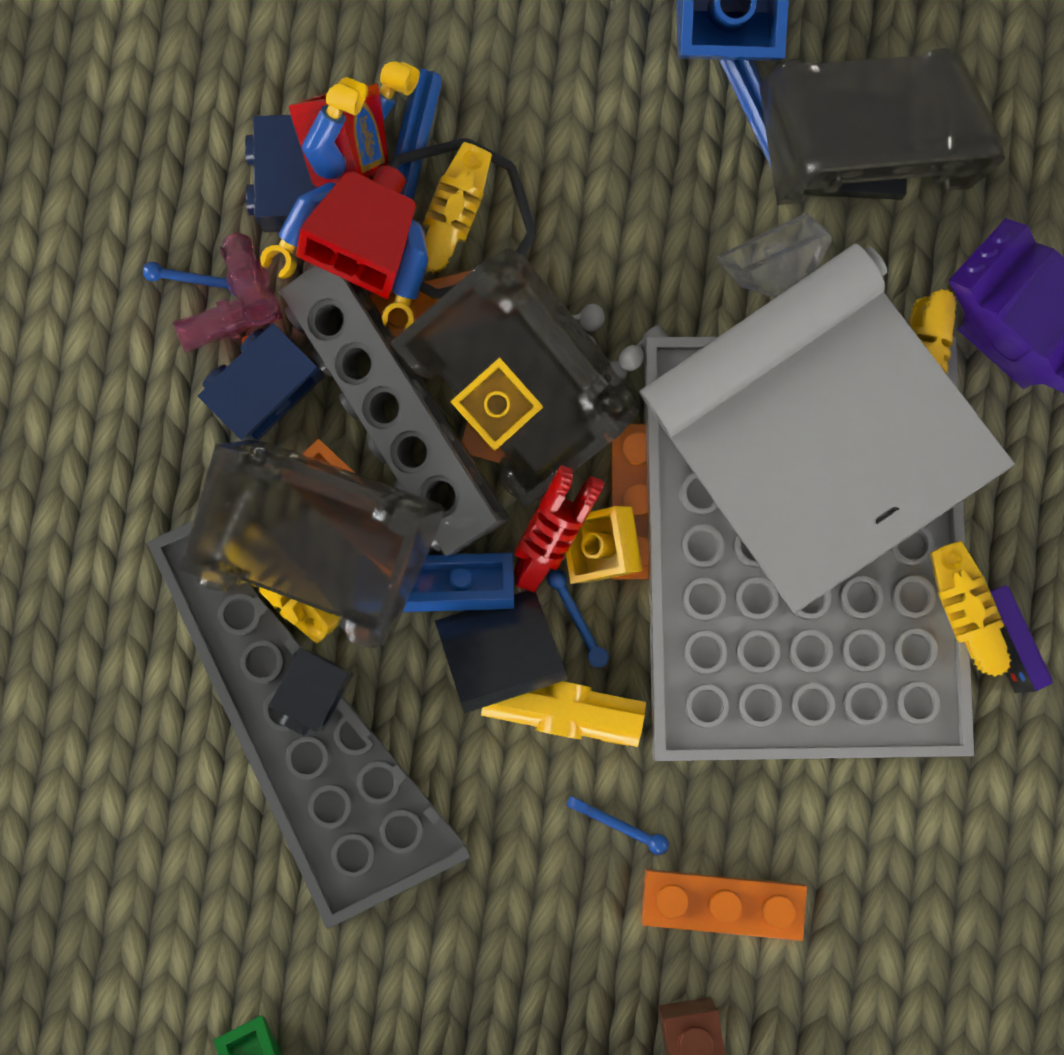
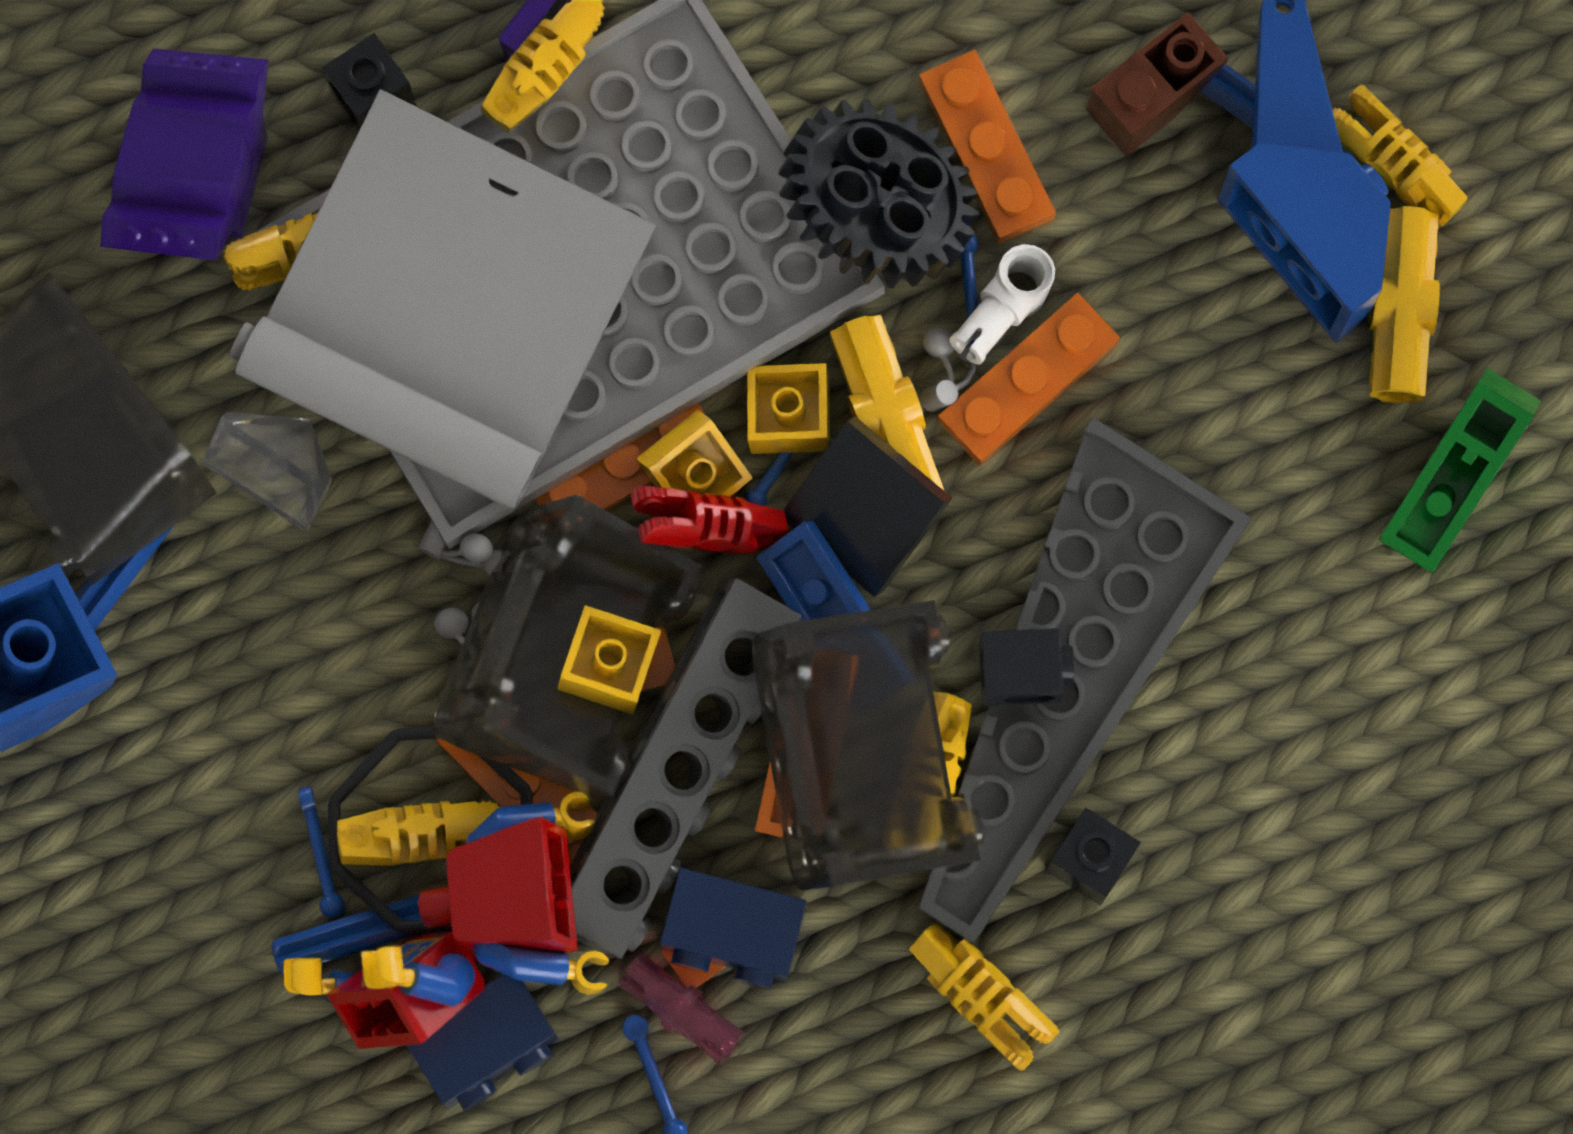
camera: 120 degrees left, 5 degrees down
(109, 529) = (982, 994): none -> yellow hinge
(153, 663) = (1093, 856): none -> black brick
(248, 279) = (626, 1005): clear pink pin -> none
(443, 132) = (331, 904): none -> blue hinge
(530, 830) = (1028, 379): none -> orange plate
(593, 779) = (945, 392): none -> light grey piece
(593, 842) = (1003, 303): none -> white pin
(607, 639) = (788, 408): none -> yellow piece
(728, 797) = (878, 193): none -> black gear
(1031, 479) = (359, 76): none -> black brick

